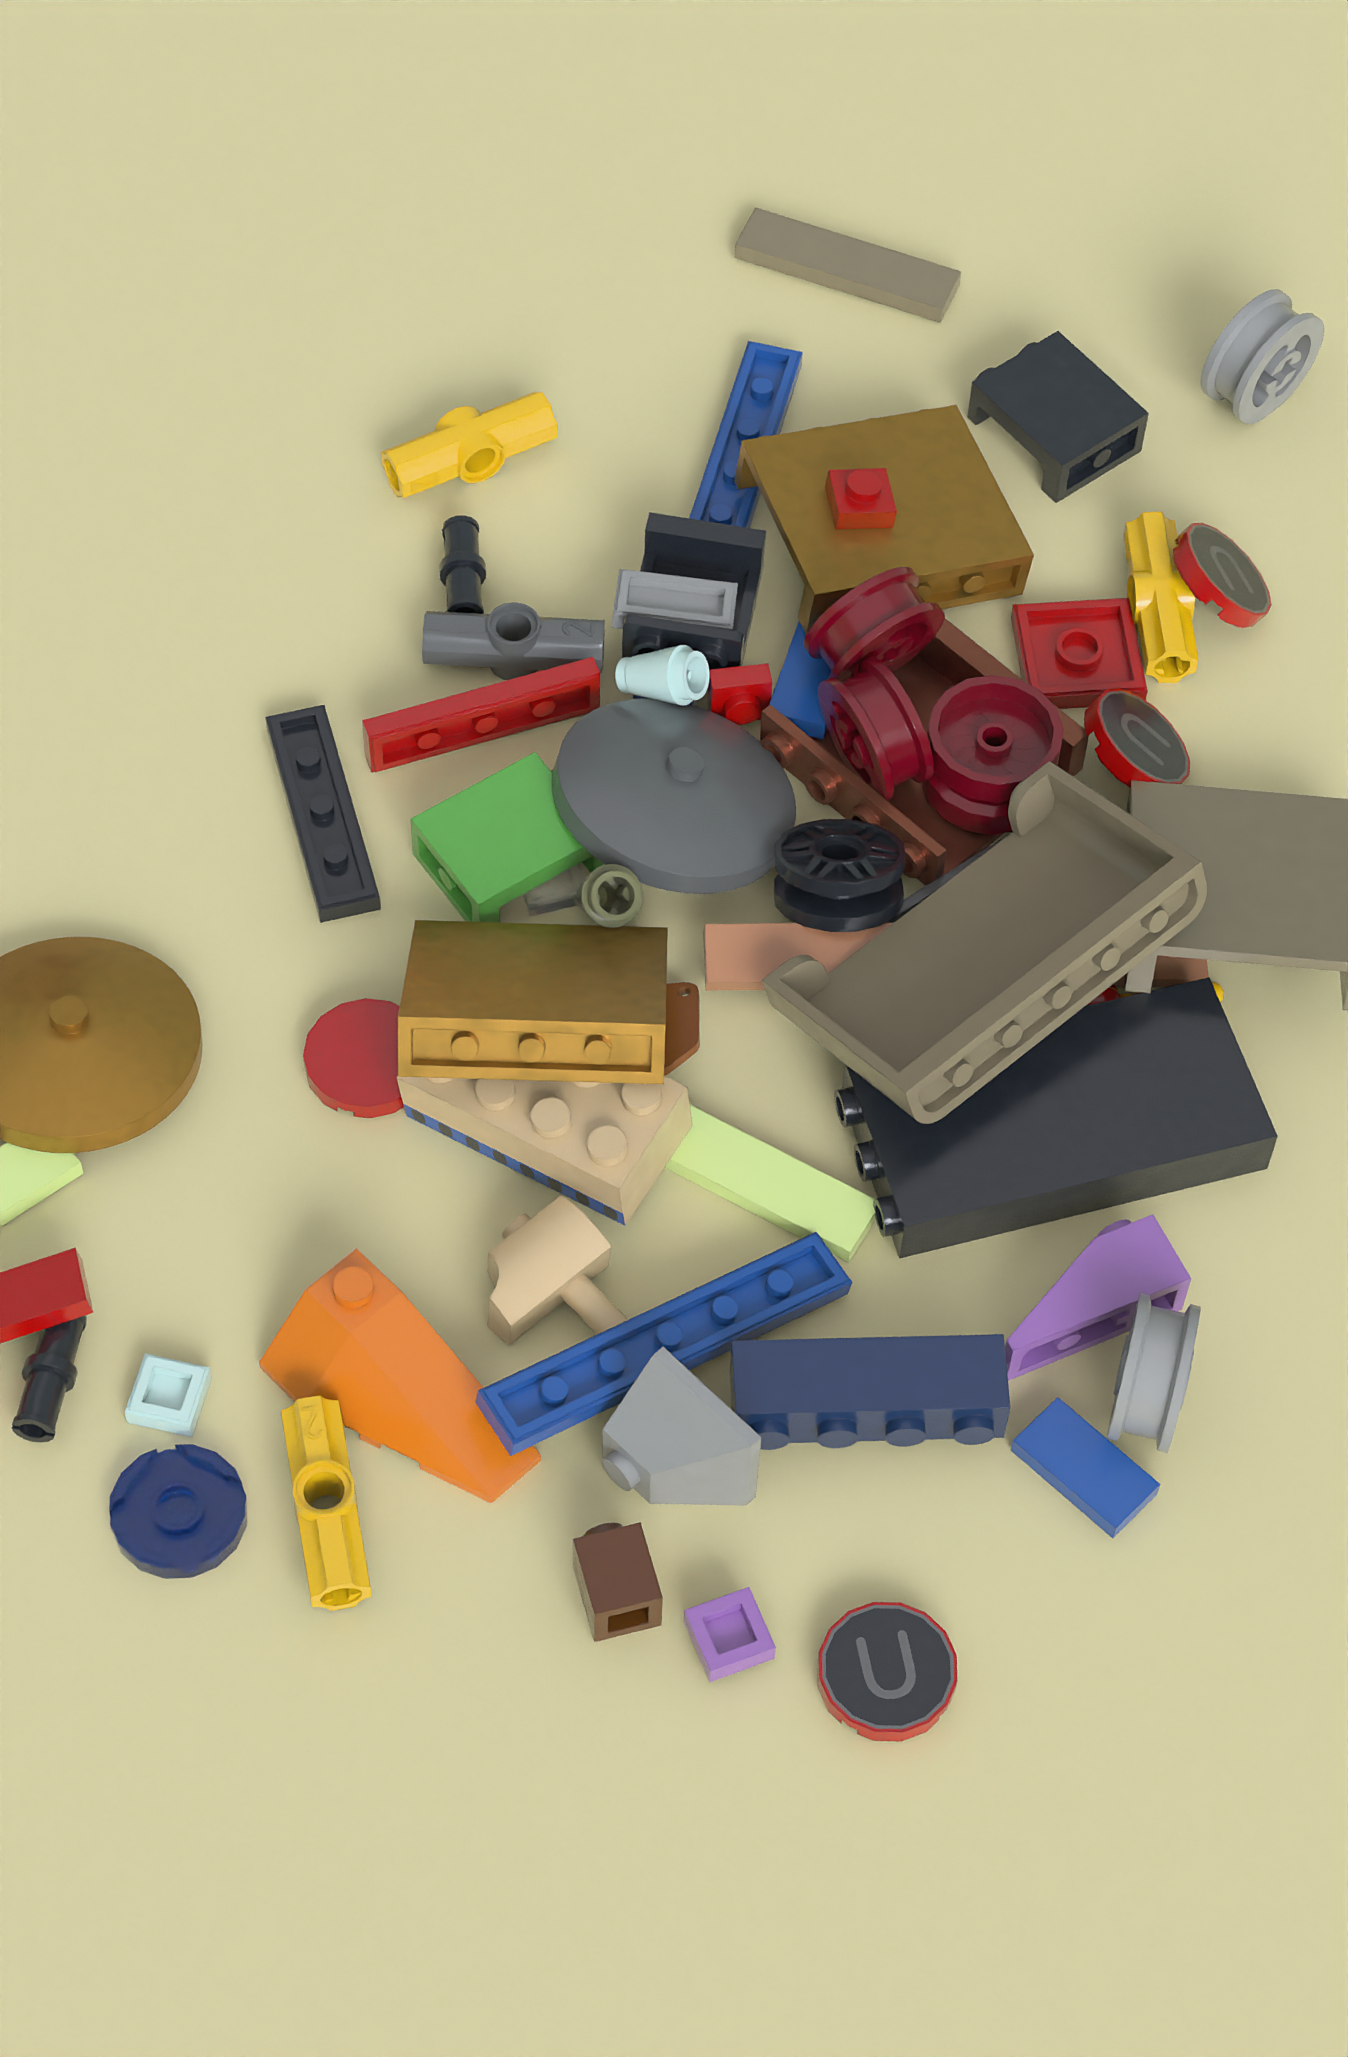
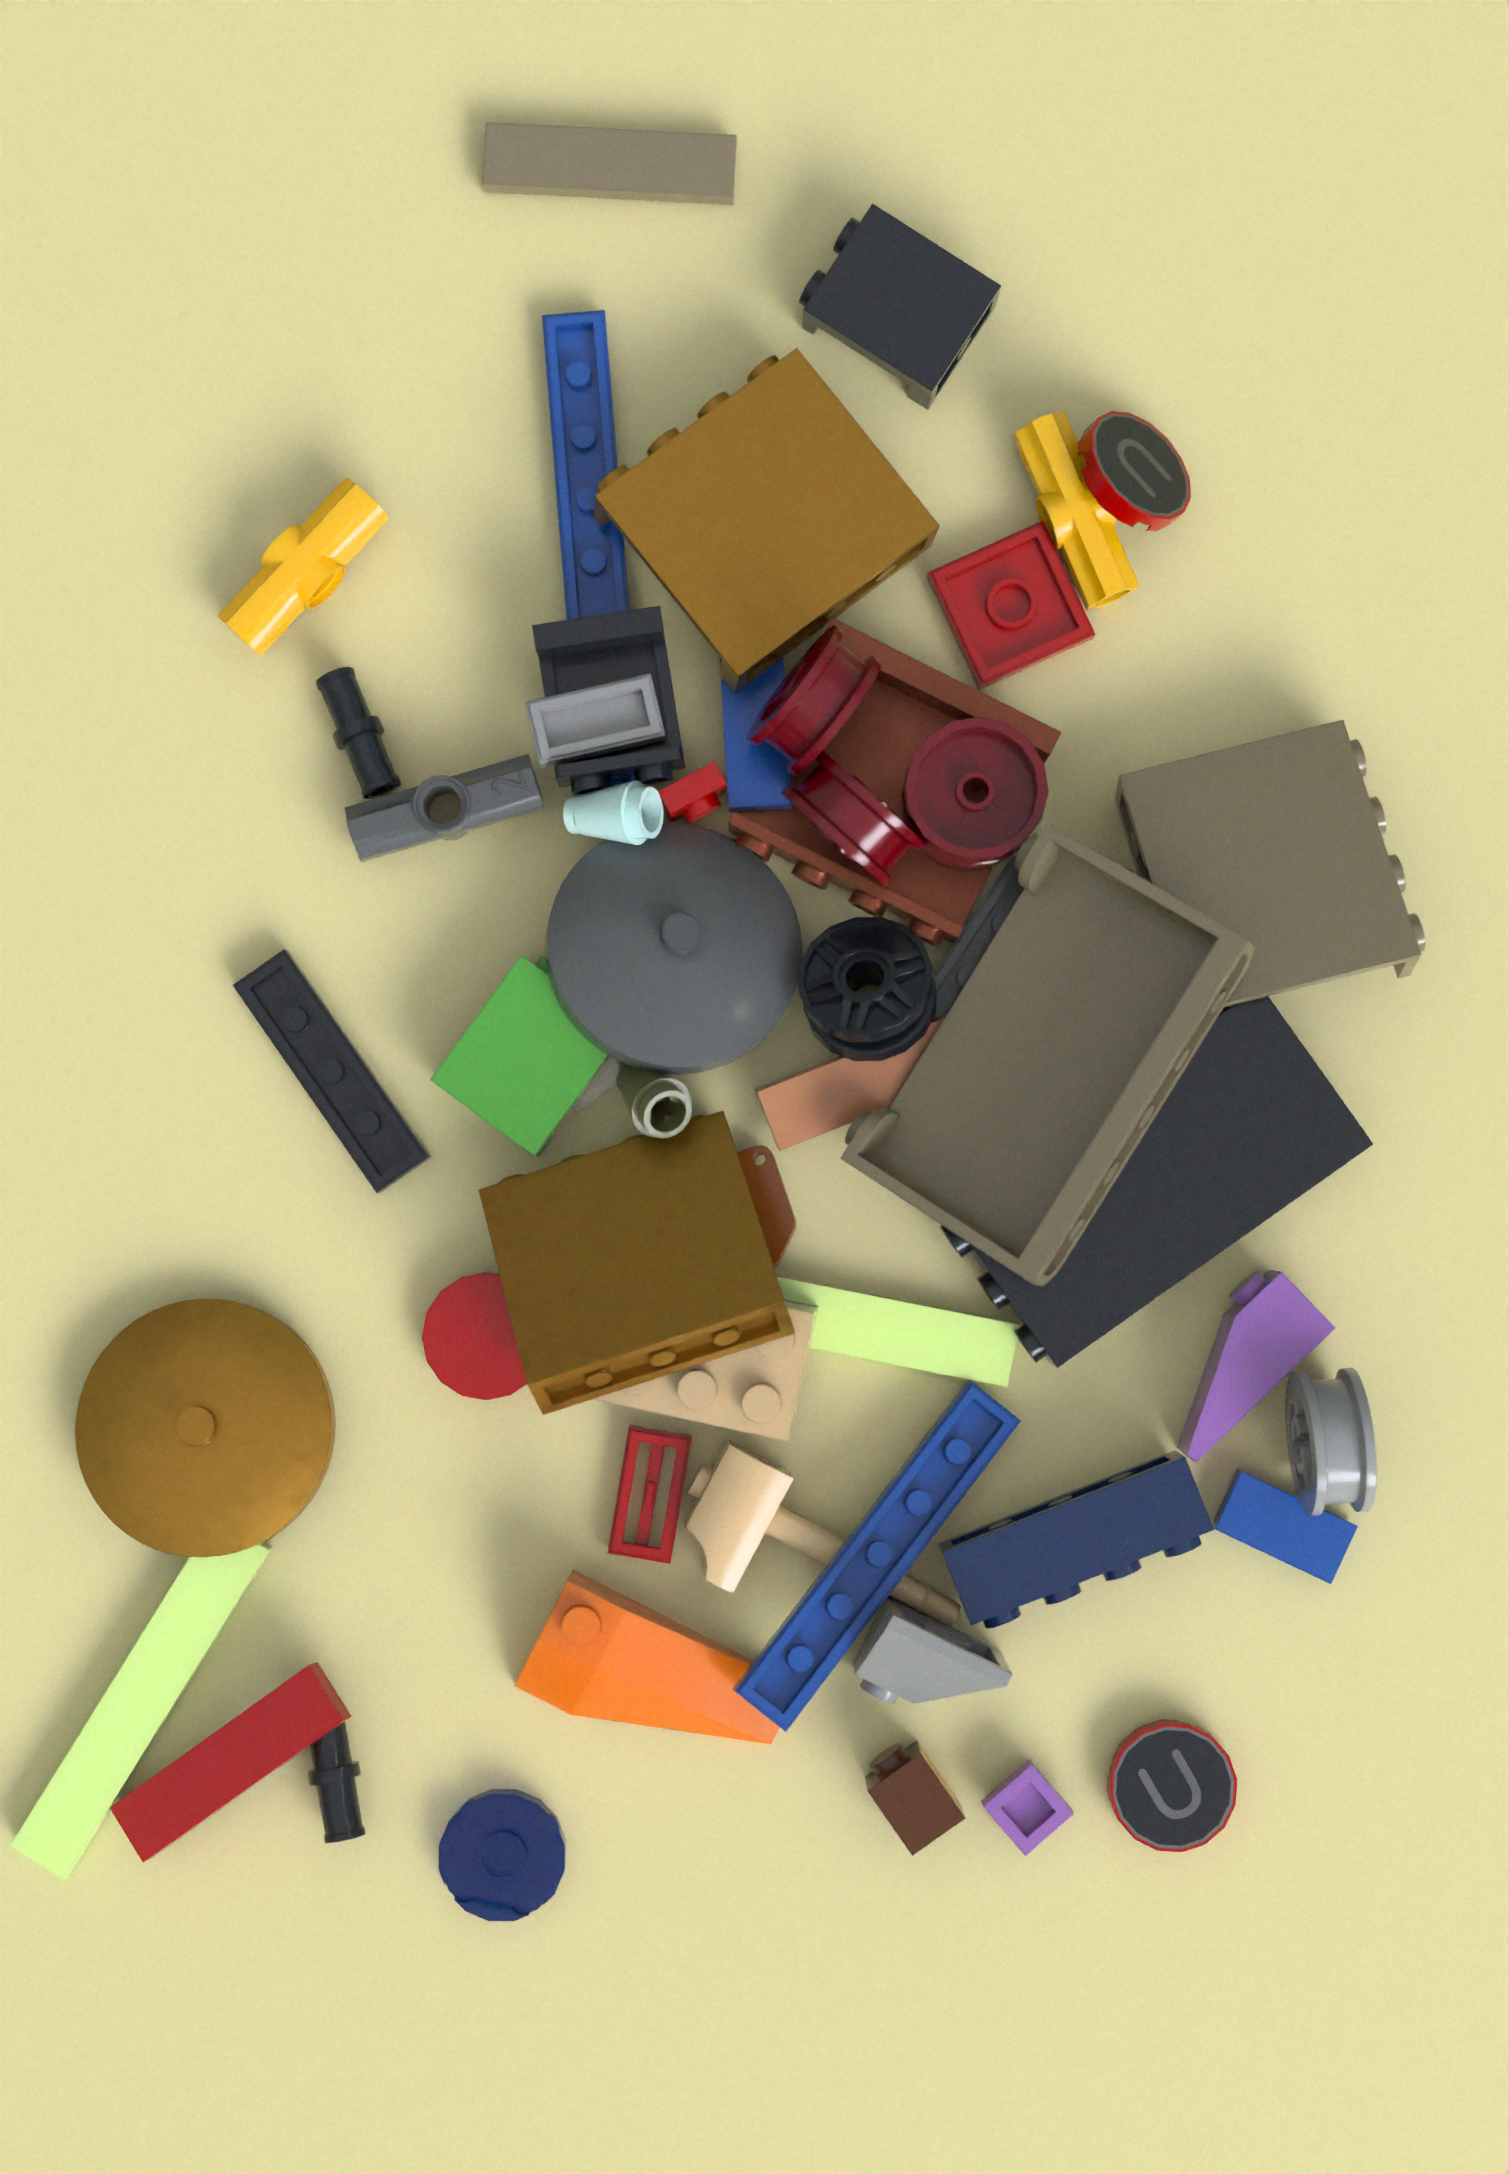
camera: 15 degrees left, 30 degrees up
(168, 1395) = (446, 1747): light aqua tile -> none
(329, 1536) = (651, 1850): yellow piece -> none
(439, 1281) = (659, 1440): none -> red tile
(481, 715) = (447, 911): red tile -> none
(860, 498) = (744, 532): red plate -> none
(1136, 739) = (1108, 716): tile -> none
(1262, 356) = (1099, 163): light grey wheel -> none

